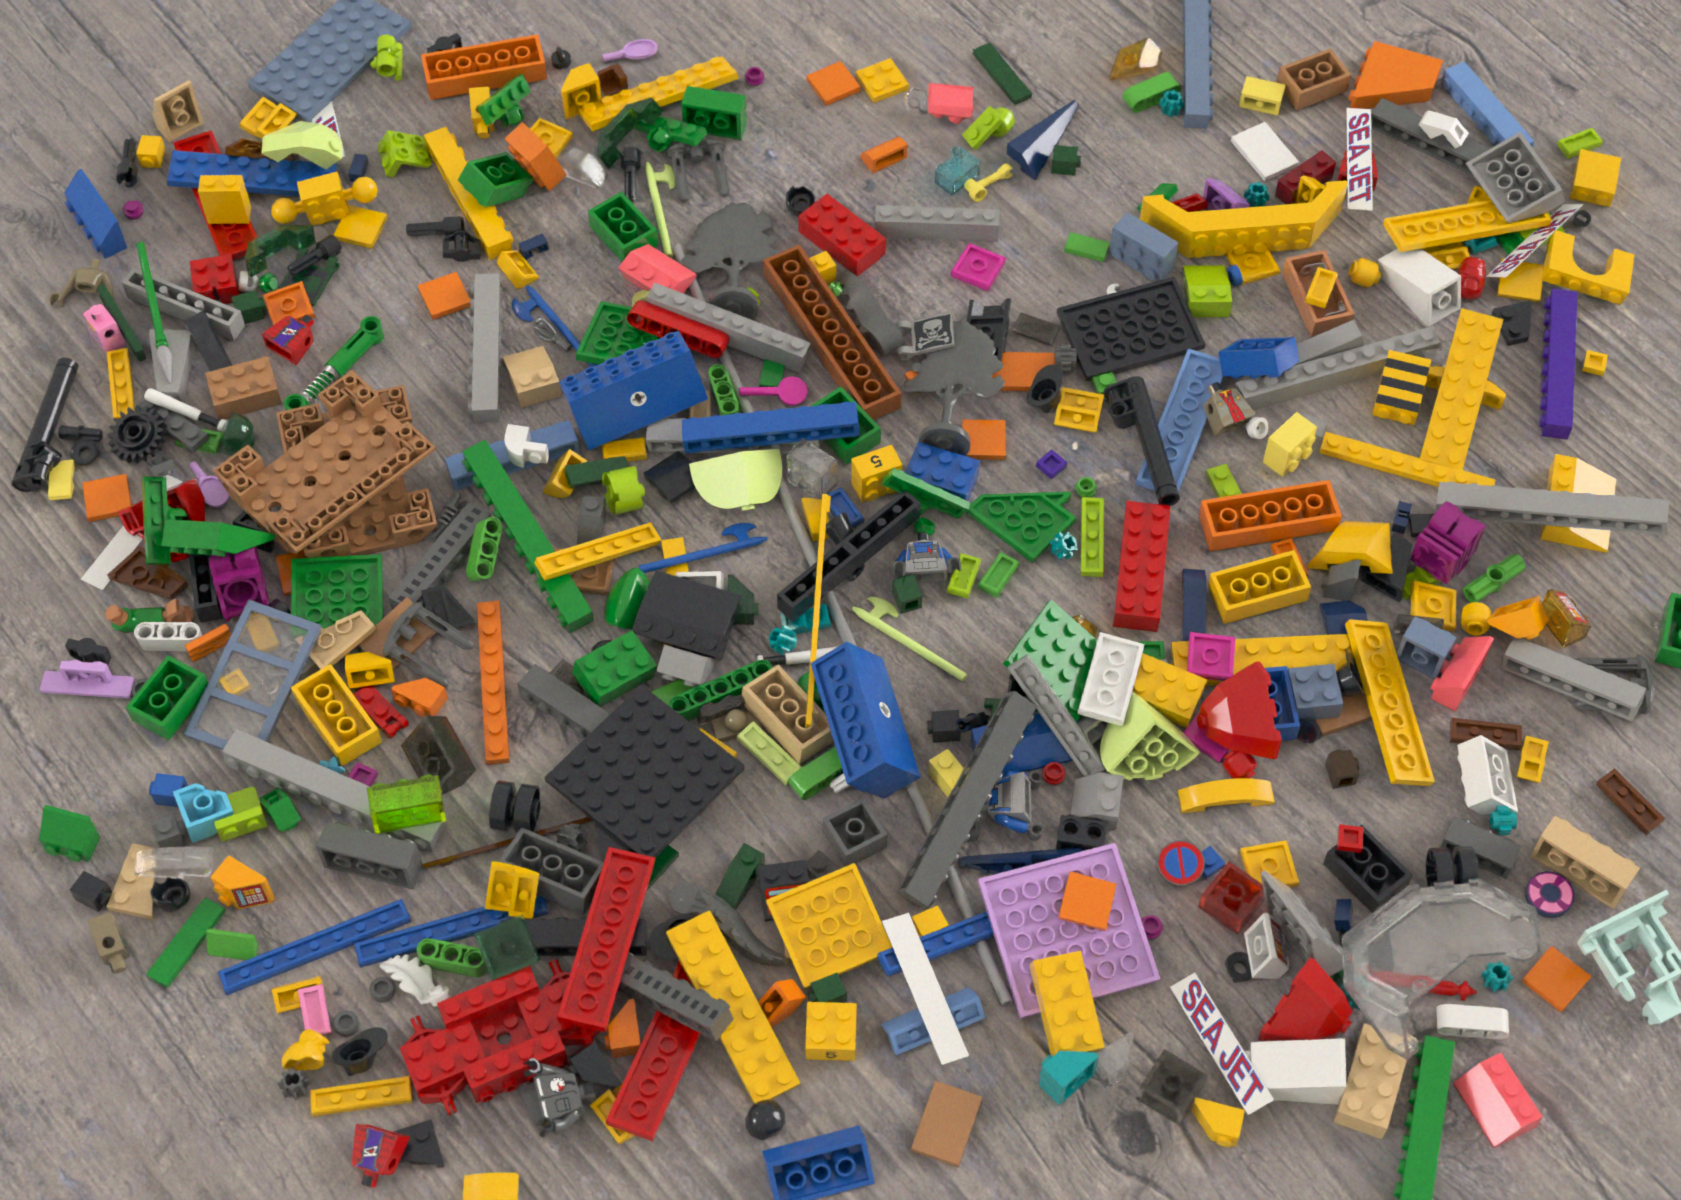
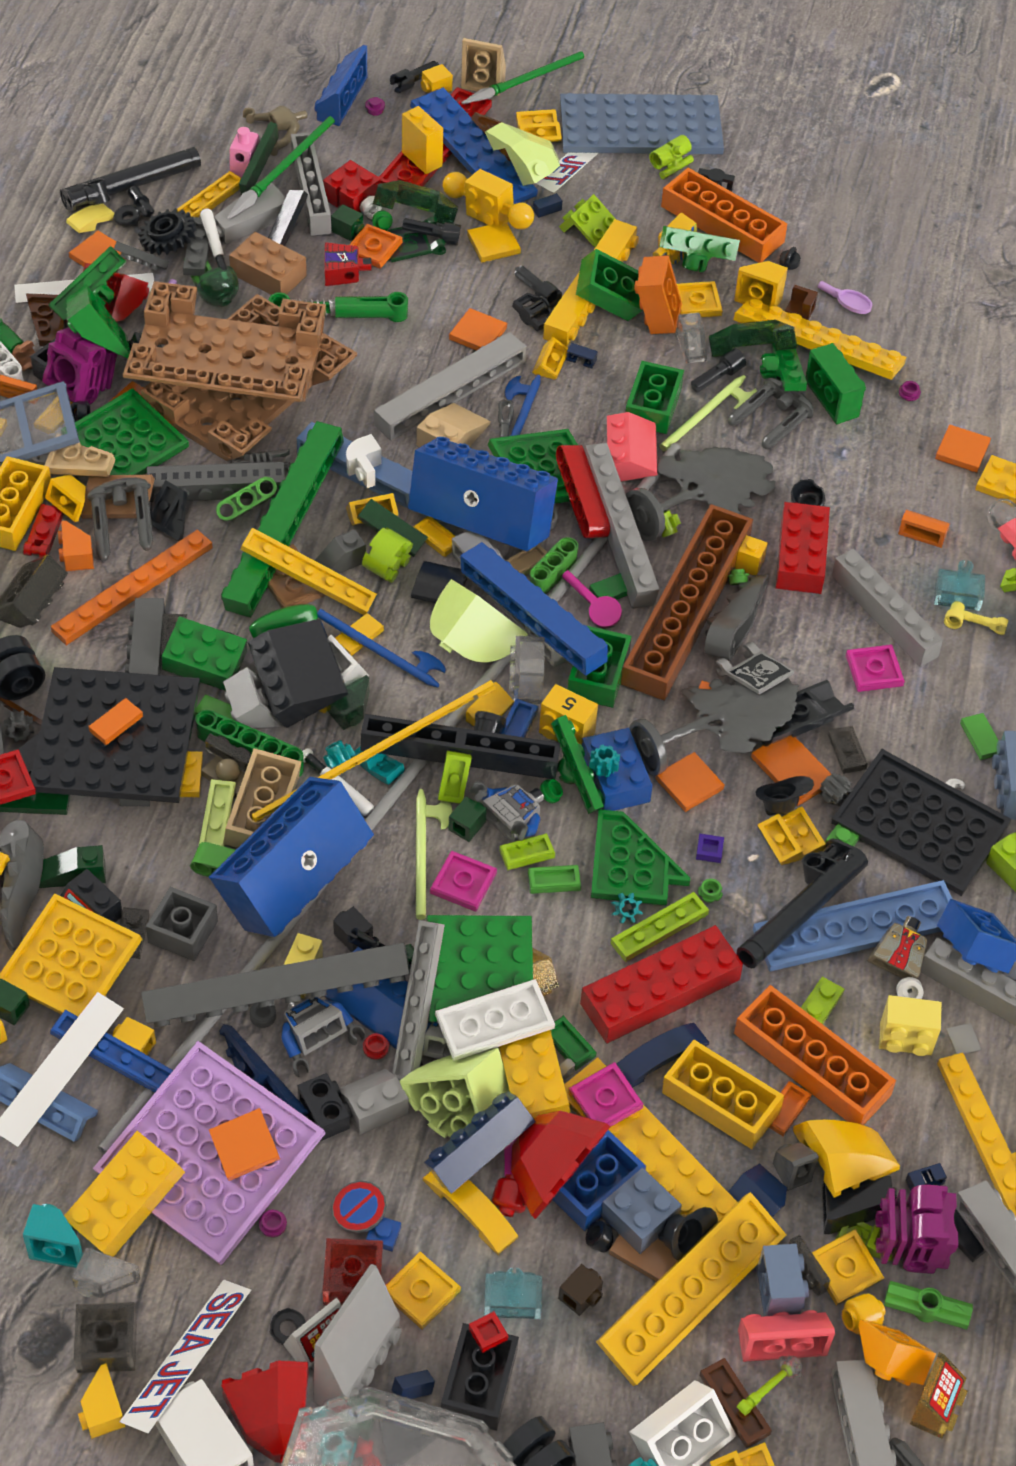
camera: 50 degrees right, 5 degrees down
(203, 127) = (495, 89): none -> green piece
(641, 763) = (115, 721): none -> orange tile
(869, 577) = (454, 777): none -> lime plate
(943, 473) = (604, 761): none -> teal gear
(954, 631) = (463, 881): none -> dark pink tile
(1199, 751) = (479, 1141): none -> brick
(1317, 812) = (513, 1294): none -> clear light blue brick
(1483, 686) = (789, 1367): none -> piece

